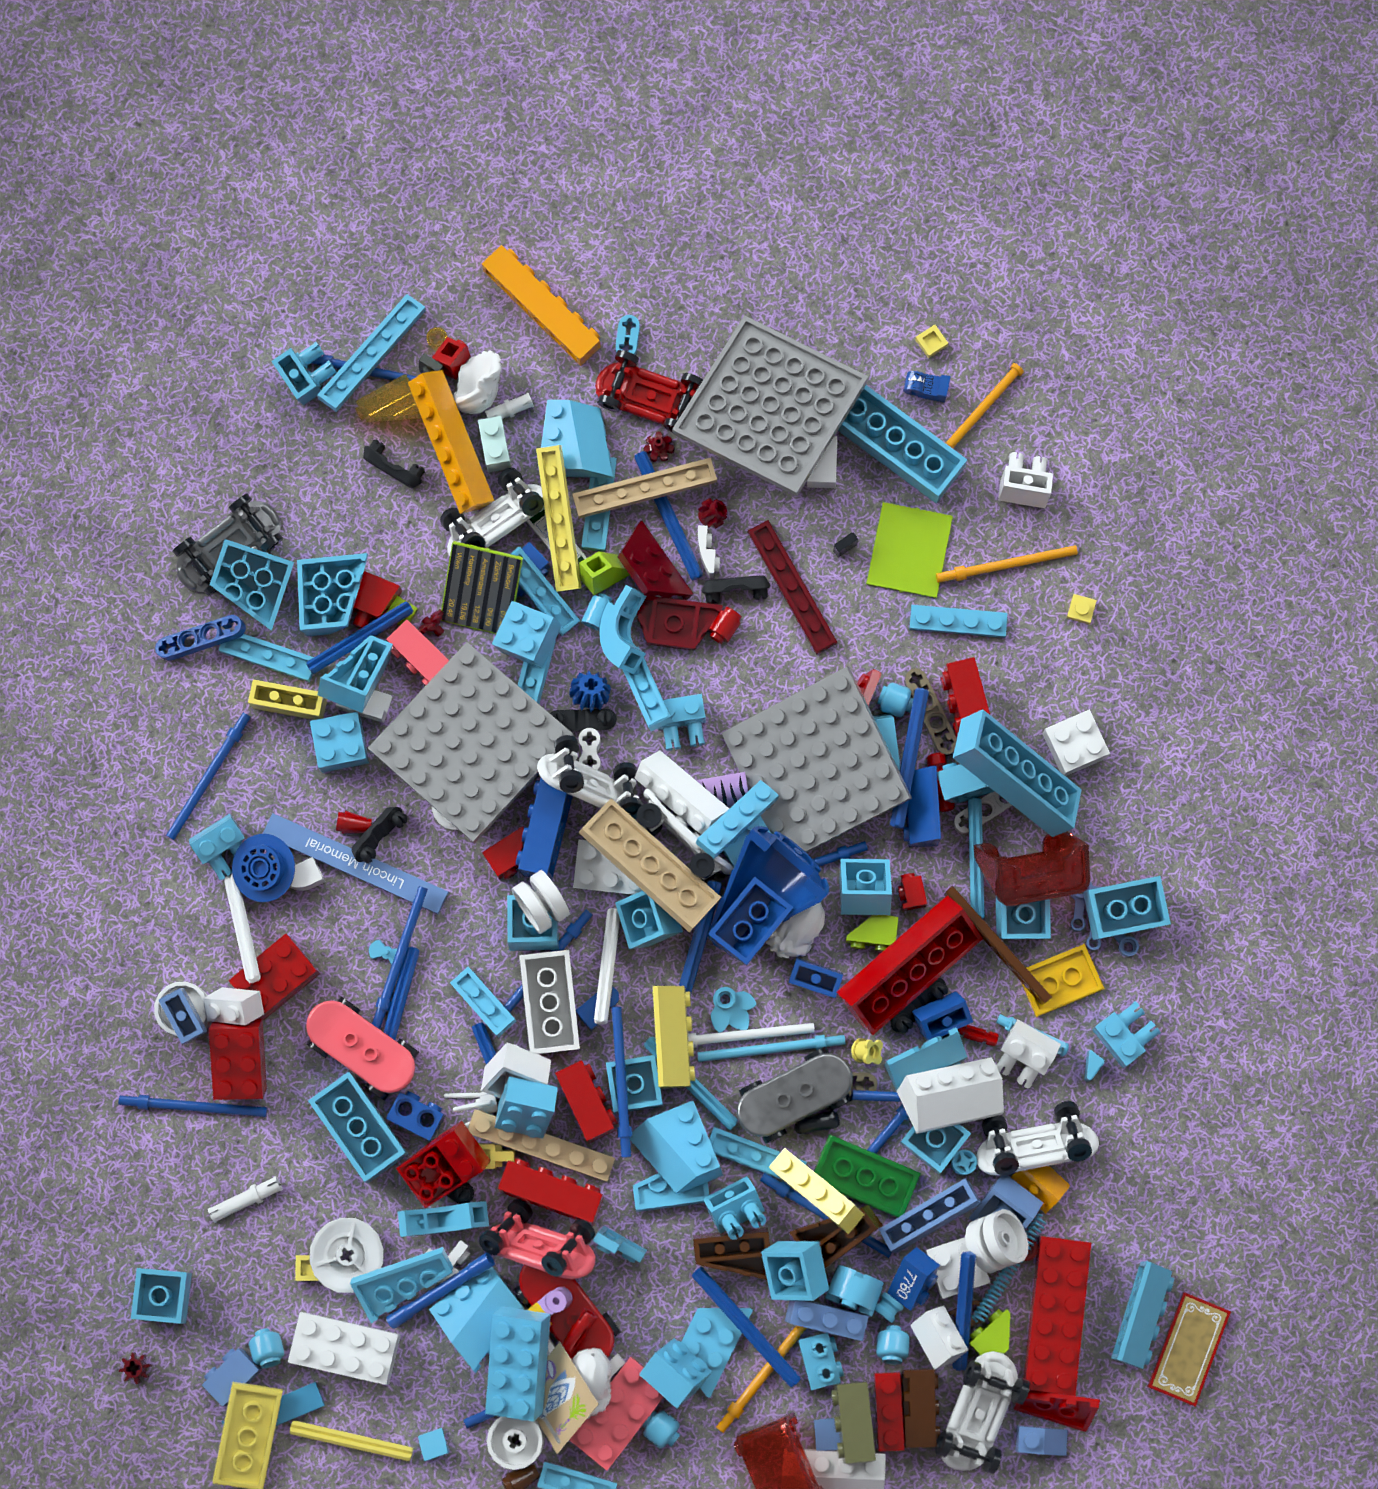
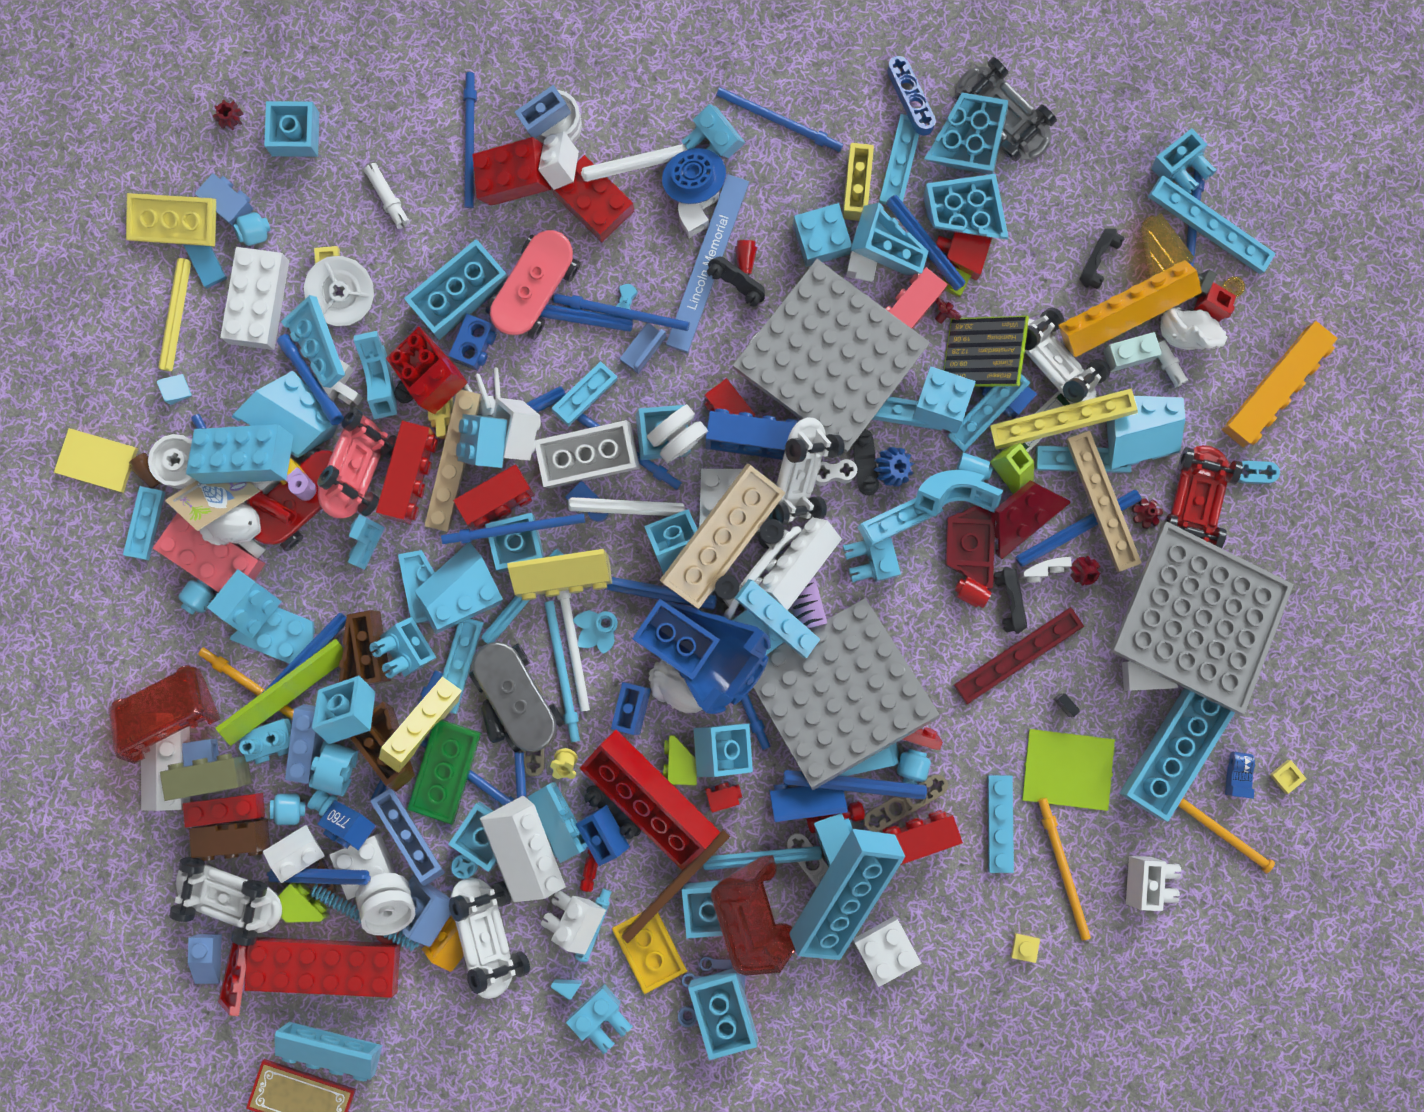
camera: 80 degrees right, 5 degrees up
(439, 938) = (643, 347): none -> medium blue panel
(771, 1339) = (281, 693): none -> lime tile

